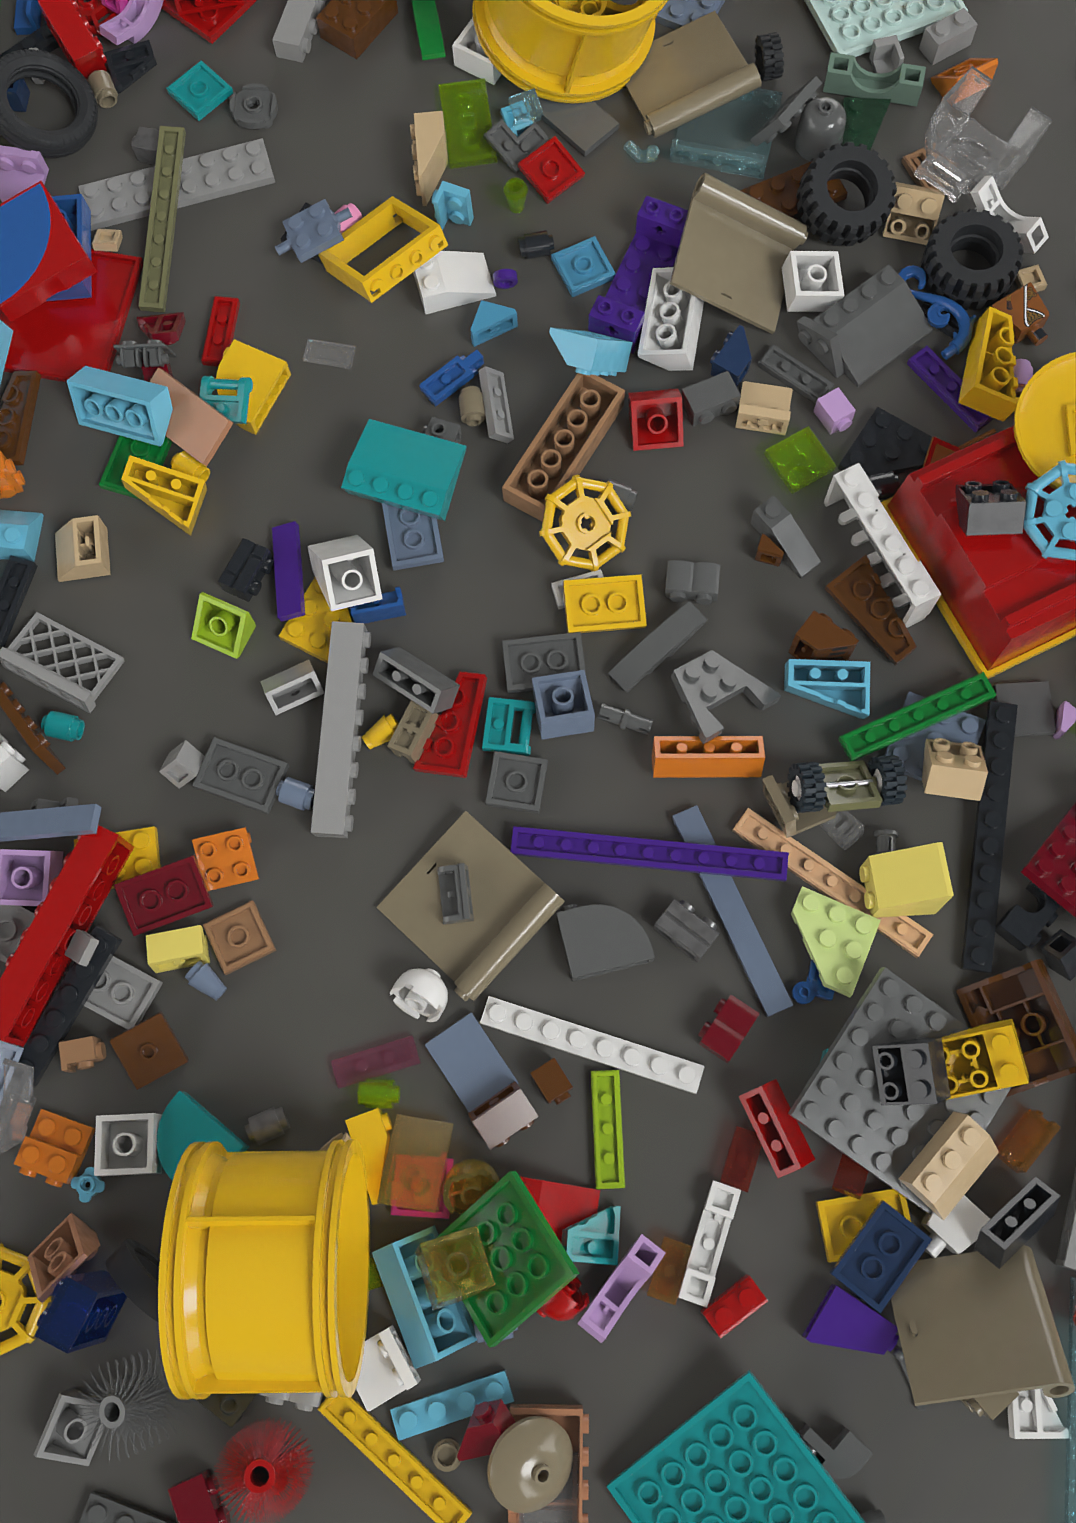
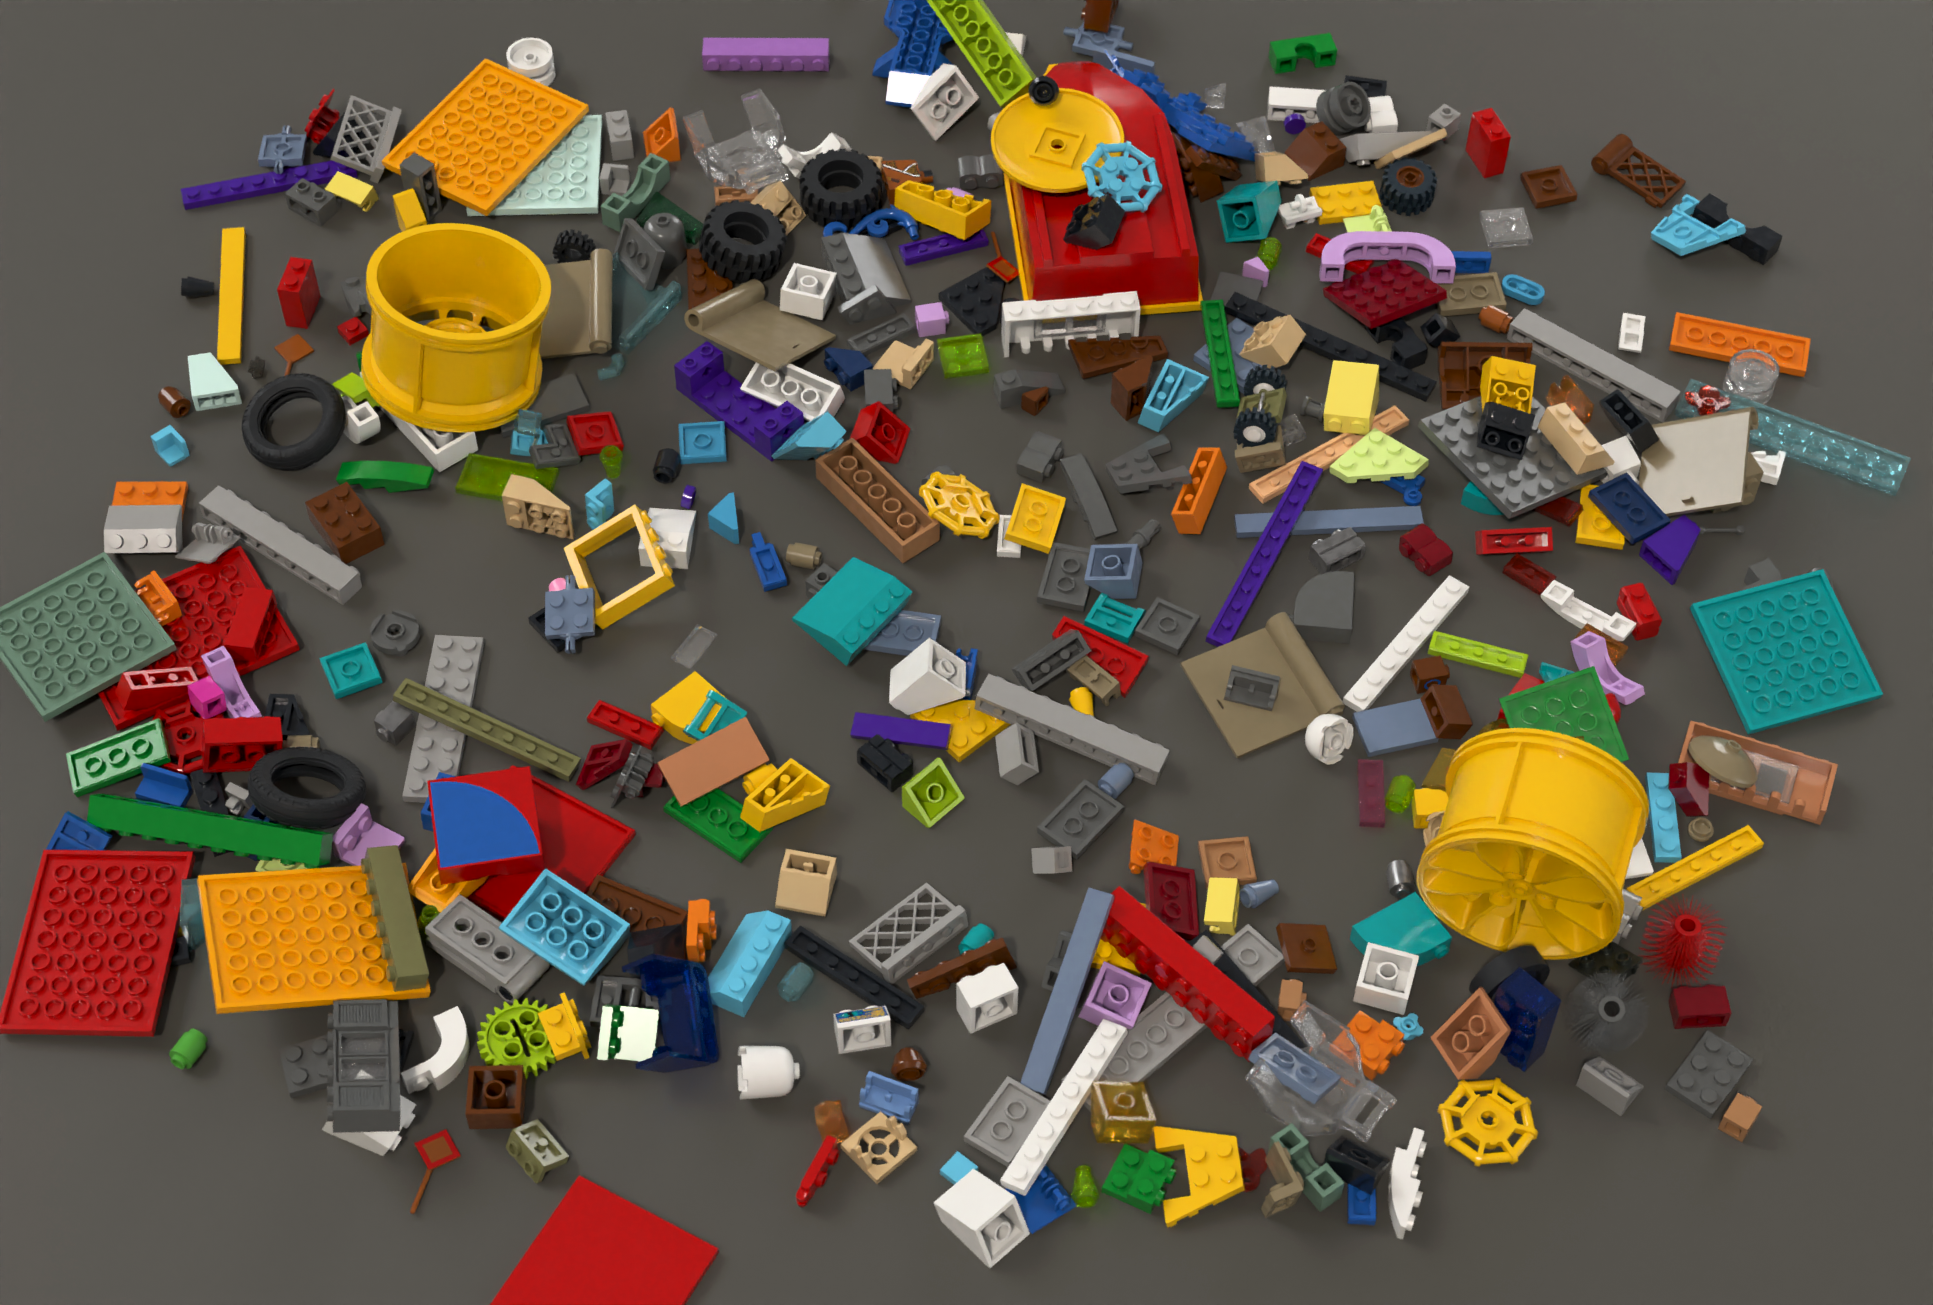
camera: 75 degrees left, 20 degrees down
(121, 404) = (677, 806): medium azure slope -> none
(496, 405) = (789, 536): light grey plate -> none

